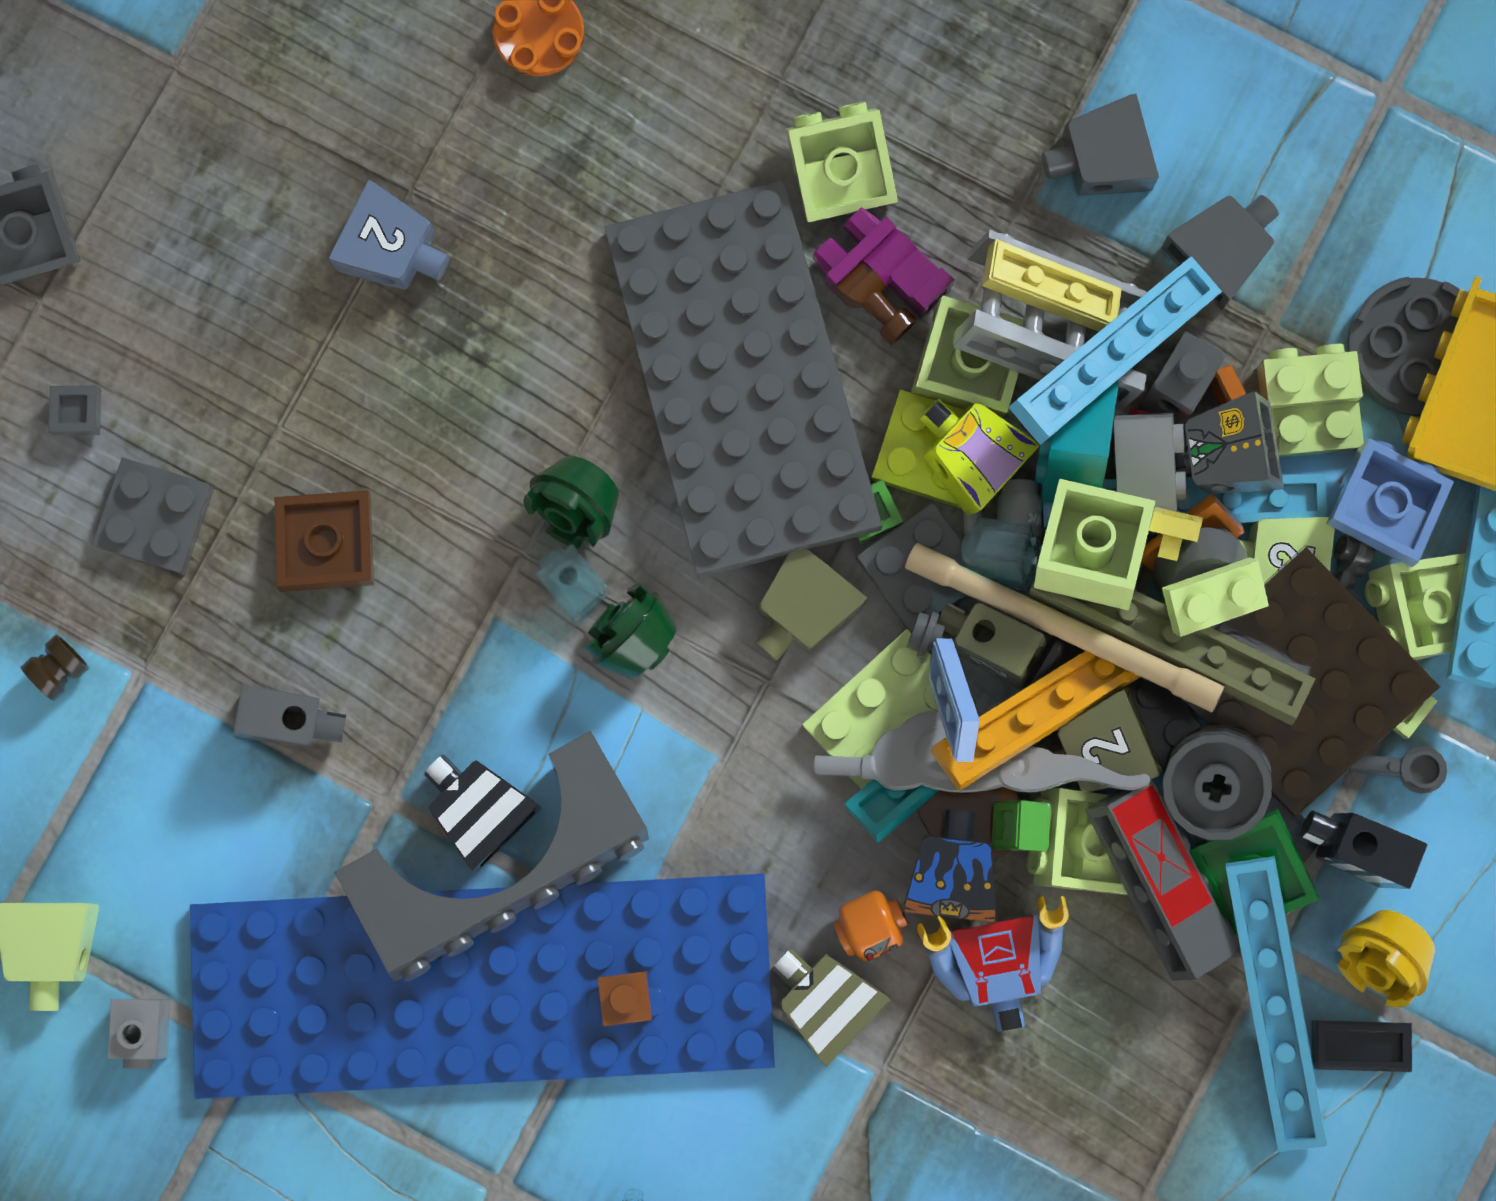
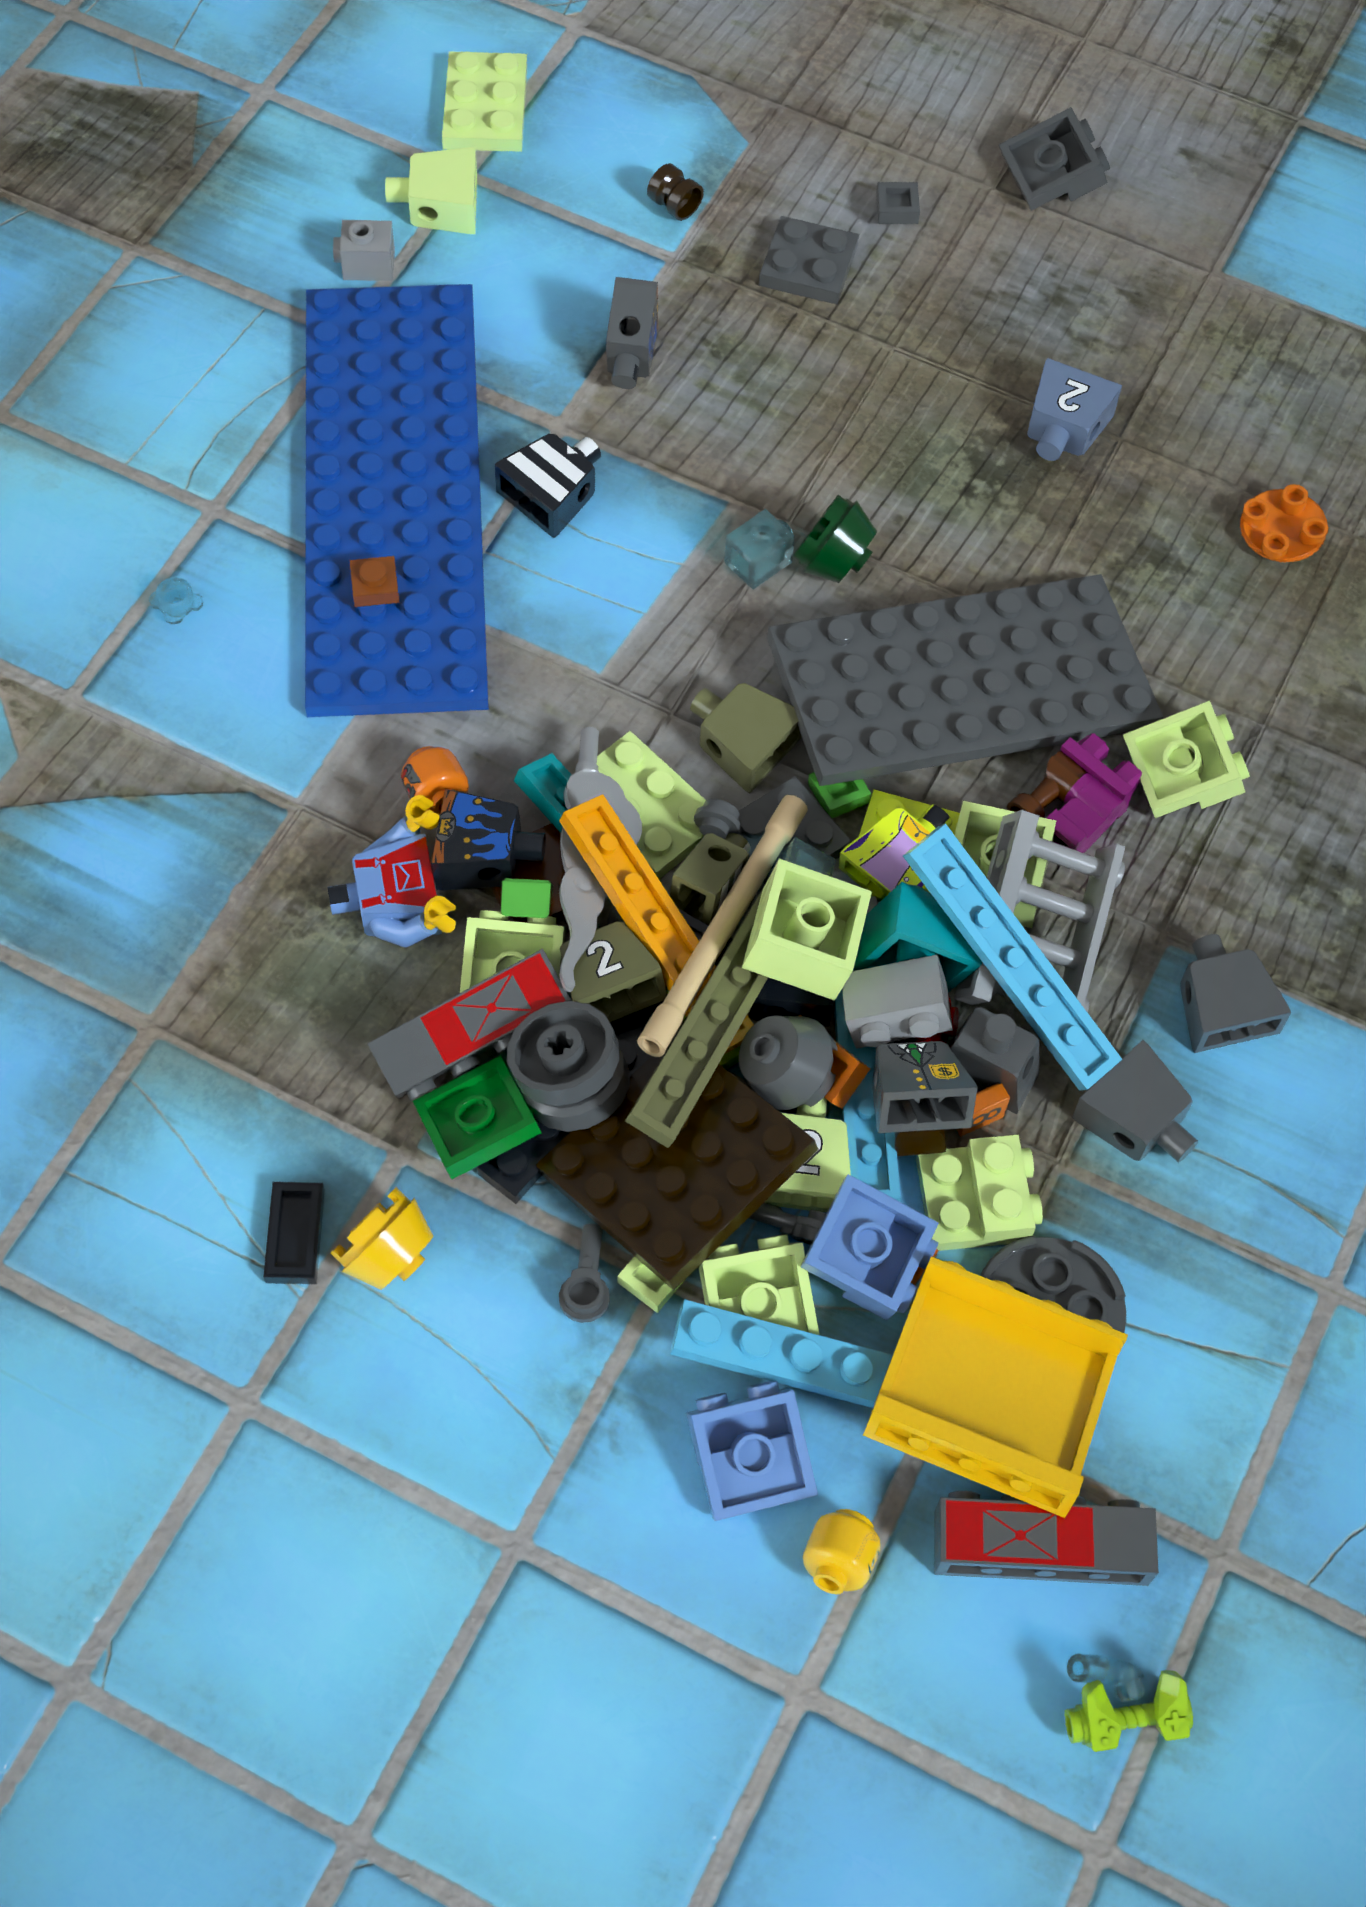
camera: 85 degrees right, 20 degrees down
(323, 541) = (792, 372): reddish brown plate -> none
(418, 927) = (531, 554): dark grey arch -> none
(631, 634) = (712, 584): dark green cone -> none
(827, 1002) = (361, 747): torso -> none
(953, 700) = (647, 811): light blue tile -> none
(1050, 286) = (1075, 906): light yellow tile -> none
(1174, 528) = (825, 1004): light yellow tile -> none
(1215, 596) = (757, 1044): yellowish green plate -> none
(1276, 1004) = (339, 1131): medium azure plate -> none
(1365, 848) = (492, 1232): black torso -> none

